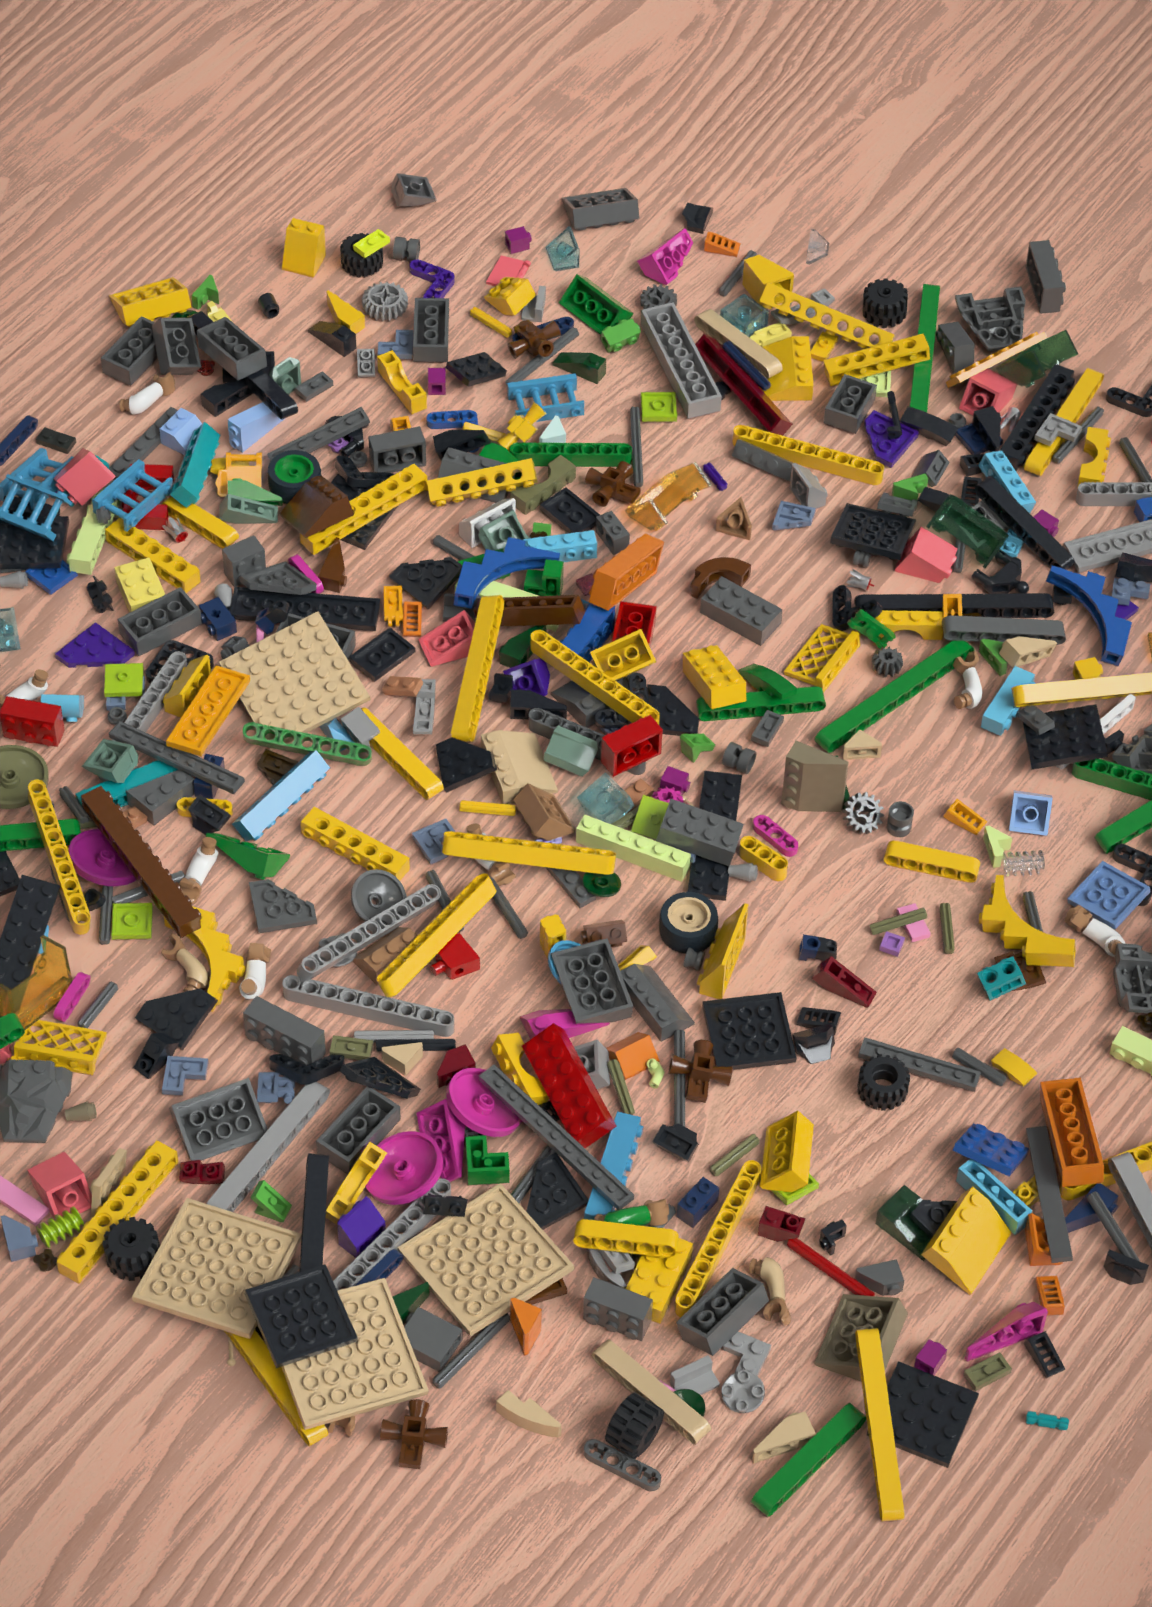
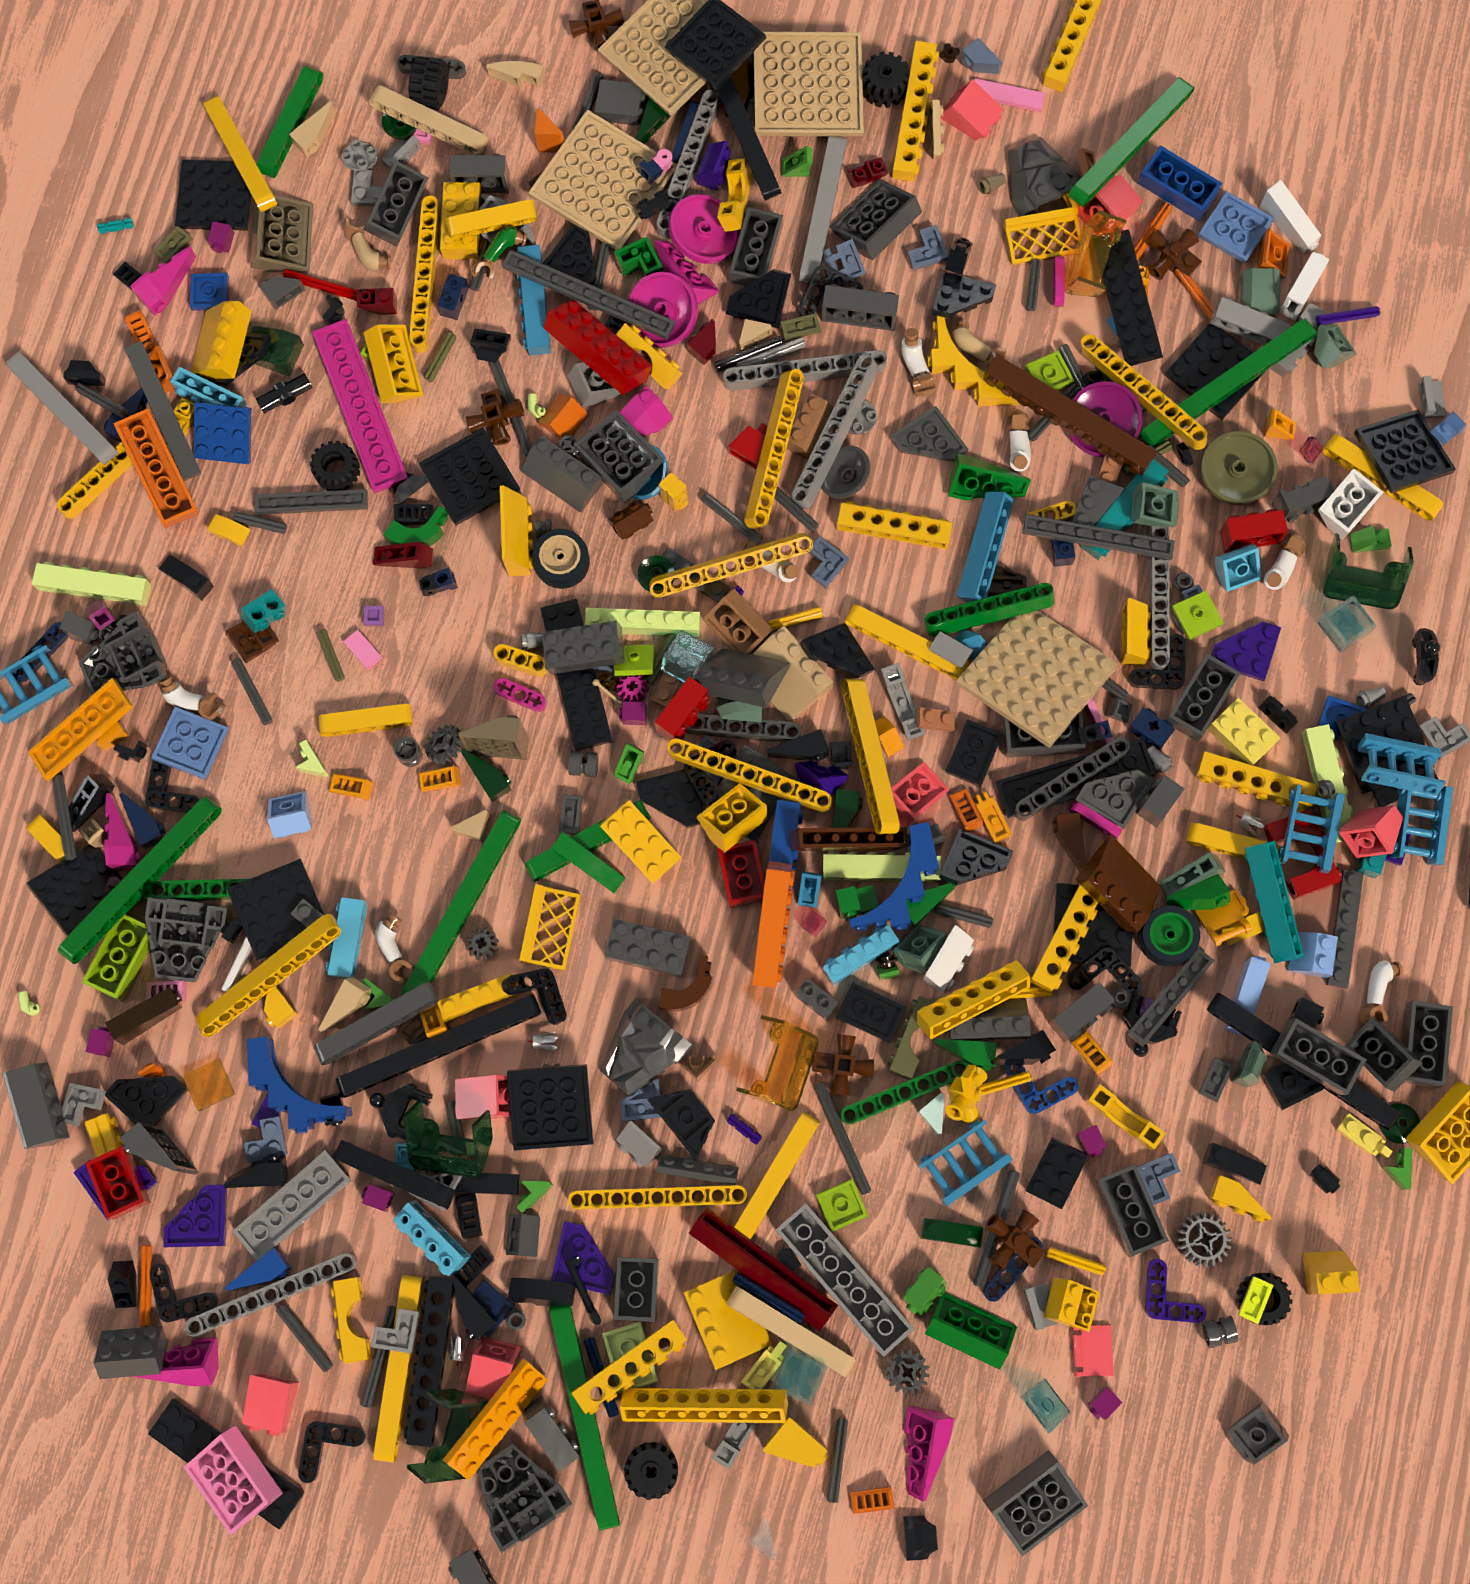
camera: 165 degrees right, 25 degrees up
(56, 440) = (1437, 895): pearl dark grey plate -> none
(61, 1225) = (952, 76): lime piece -> none
(207, 816) = (1038, 501): black slope -> none
(208, 711) = (1094, 593): light orange plate -> none
(315, 597) = (1076, 771): none -> dark grey beam
(366, 362) = (1179, 1140): light grey slope -> none
(422, 1244) = (657, 166): none -> leg
(451, 694) = (888, 736): none -> light orange slope
(560, 761) = (742, 676): none -> dark grey slope
(620, 1087) = (557, 376): olive axle -> none
(640, 955) = (591, 516): yellow slope -> none
(640, 1017) = (567, 442): none -> dark grey wheel
(701, 439) = (777, 1175): none -> yellow beam
(762, 494) = (685, 1118): none -> black wing
(778, 547) = (642, 1048): none -> dark grey wedge
(823, 346) = (699, 1373): yellow plate -> none
(824, 994) = (426, 534): none -> green arch
(836, 1136) = (360, 406): none -> dark pink plate
(871, 628) = (507, 967): green plate -> none
(880, 791) = (455, 776): none -> light orange slope
(897, 505) = (538, 1157): dark grey plate -> none
(898, 921) = (374, 639): olive axle -> none
(902, 382) = (597, 1366): none -> dark blue axle
(913, 1175) = (284, 393): none -> black piece
(961, 1307) = (208, 290): none -> blue plate
(1023, 862) = (279, 749): clear piece -> none
(1036, 945) = (234, 651): yellow arch -> none
(1070, 1040) = (186, 577): none -> black slope

